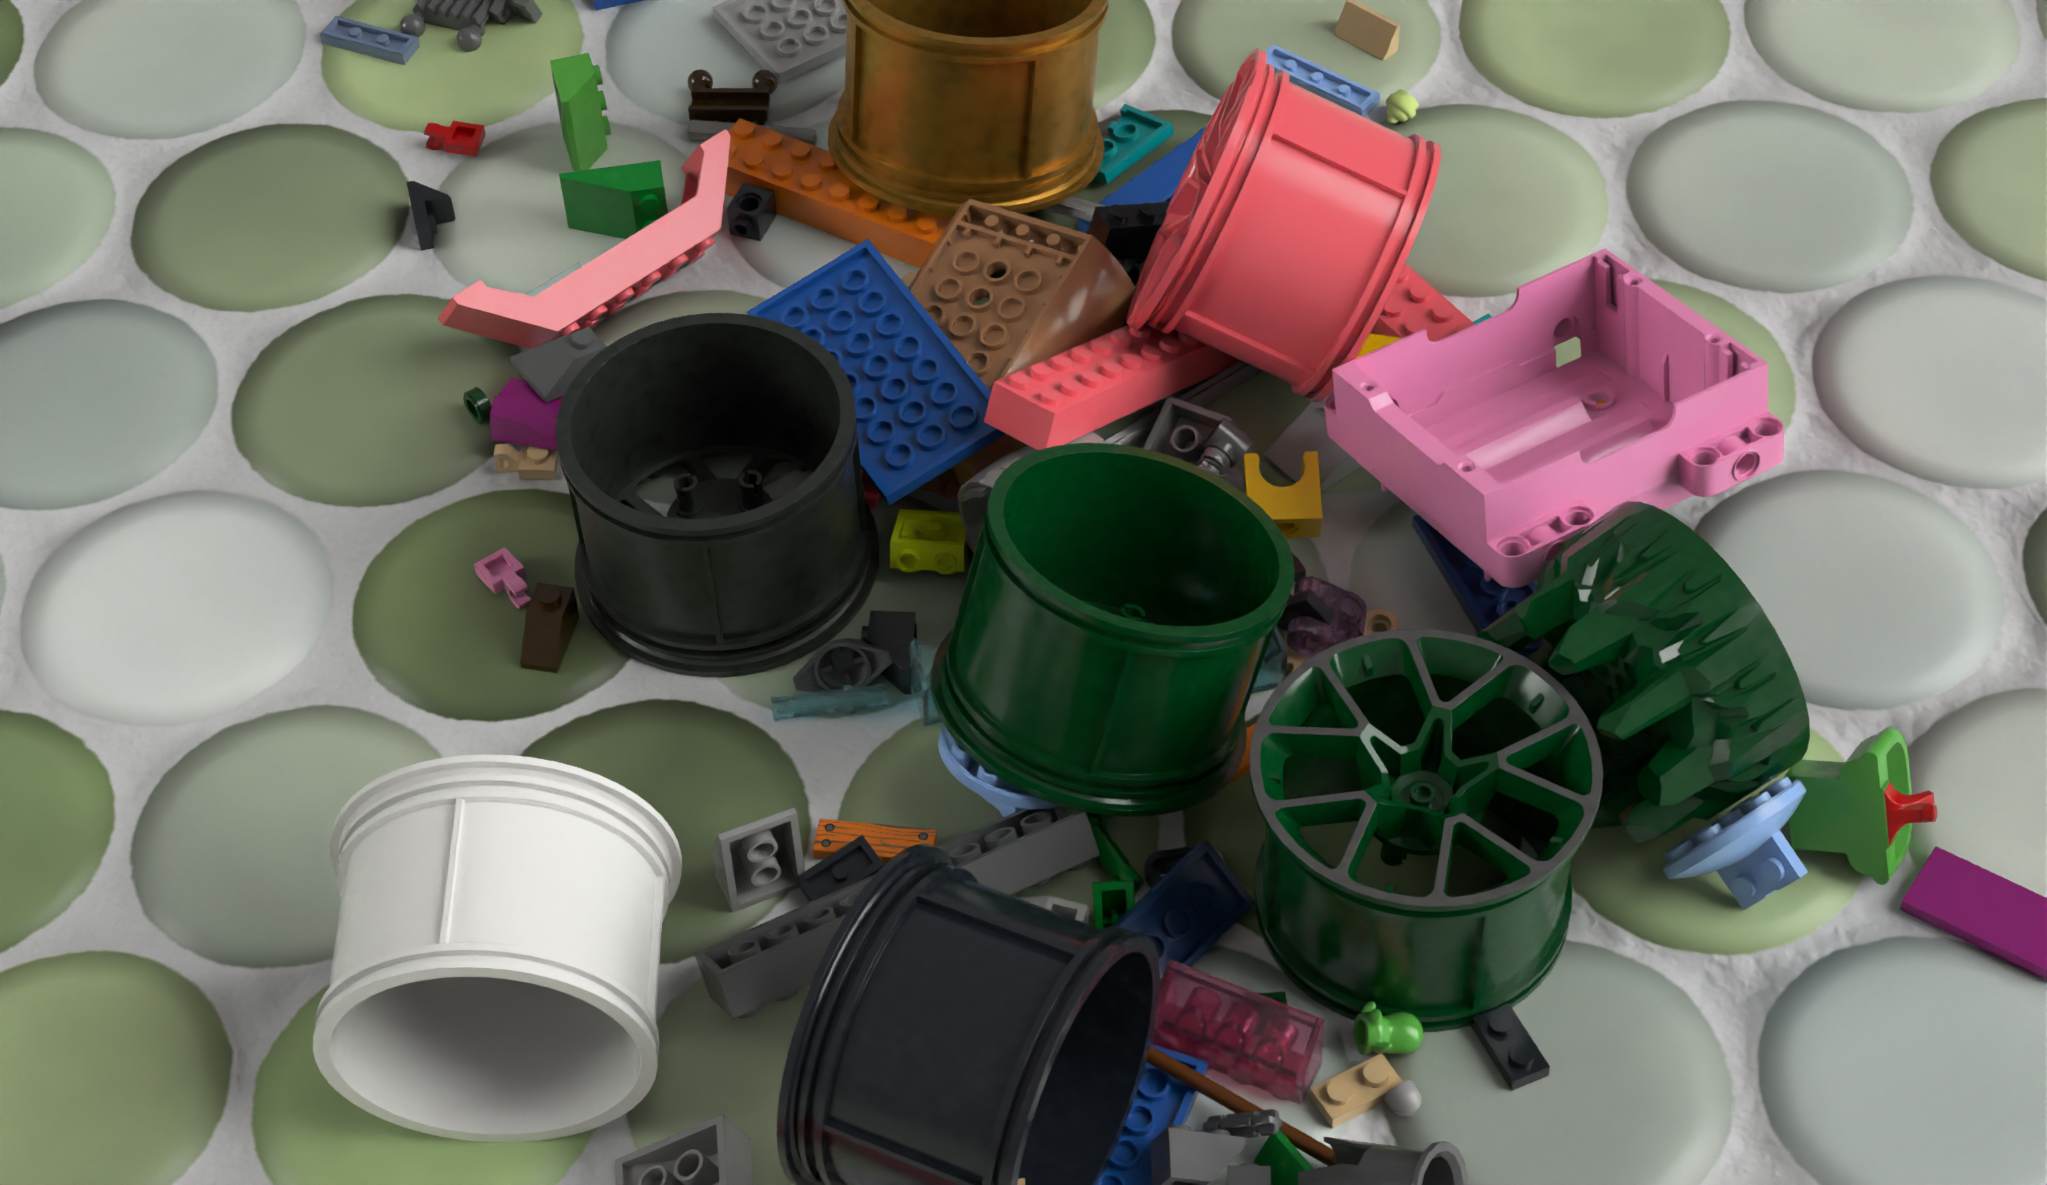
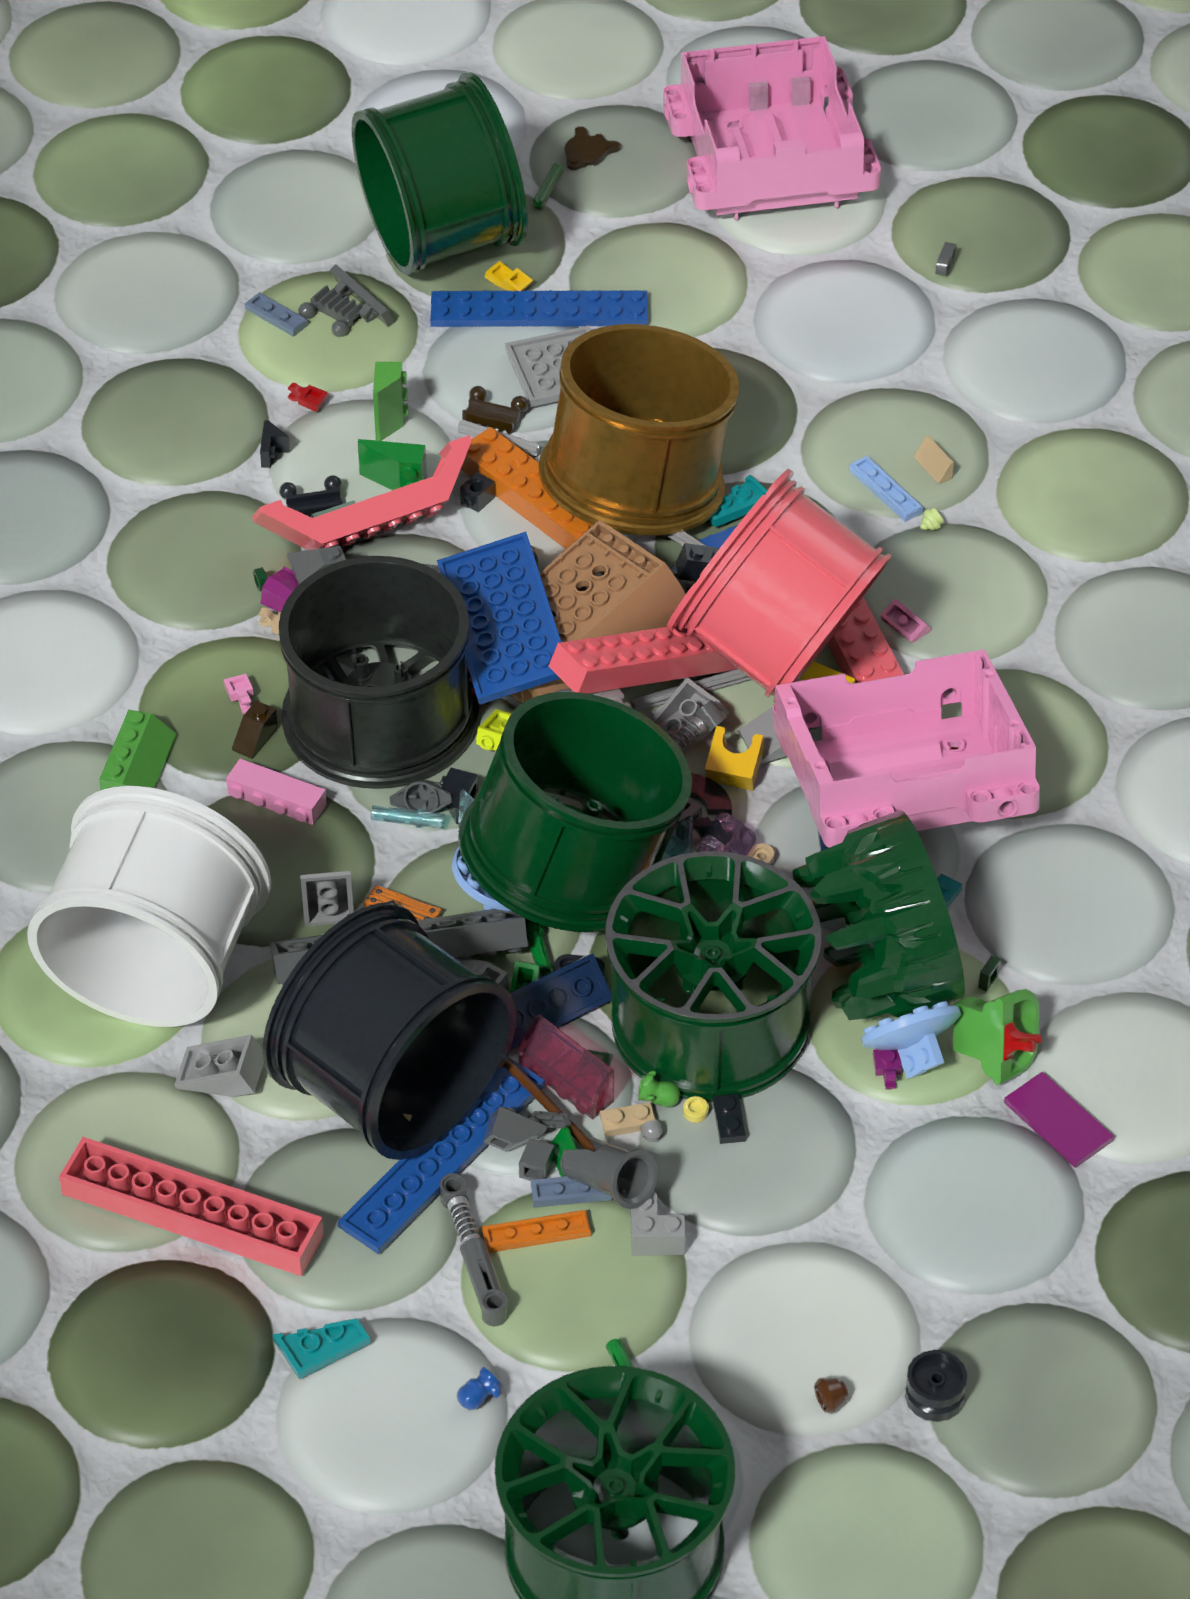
camera: 15 degrees right, 0 degrees up
(378, 713) = (138, 752): none -> bright green slope
(521, 276) = (314, 501): none -> black gear
(614, 713) = (276, 791): none -> bright pink brick
(1436, 253) = (905, 621): none -> bright pink slope
(1453, 1045) = (695, 1109): none -> light yellow tile
(1707, 897) = (888, 1065): none -> magenta plate

